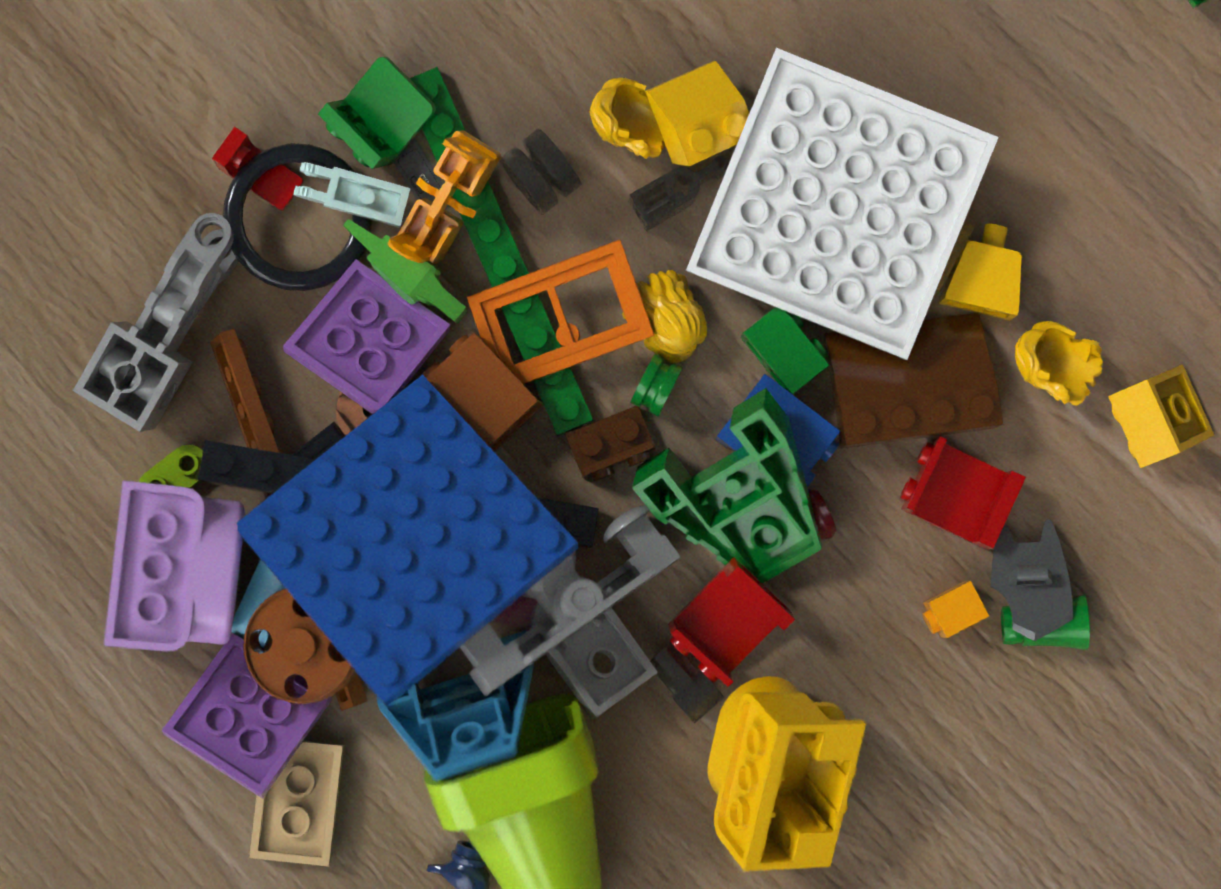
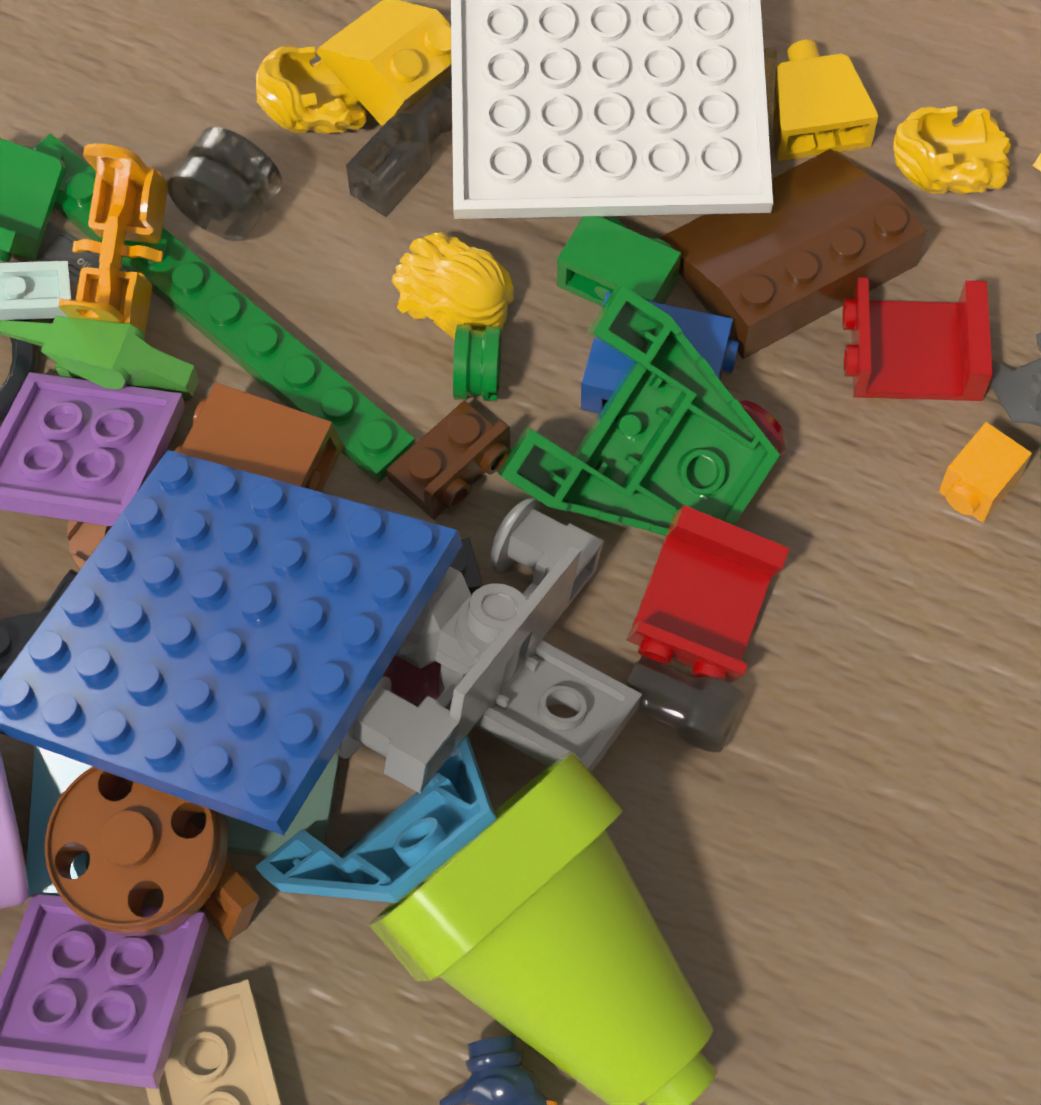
camera: 15 degrees left, 20 degrees down
(568, 335) = (349, 360): orange door -> none
(781, 775) = (872, 740): yellow brick -> none

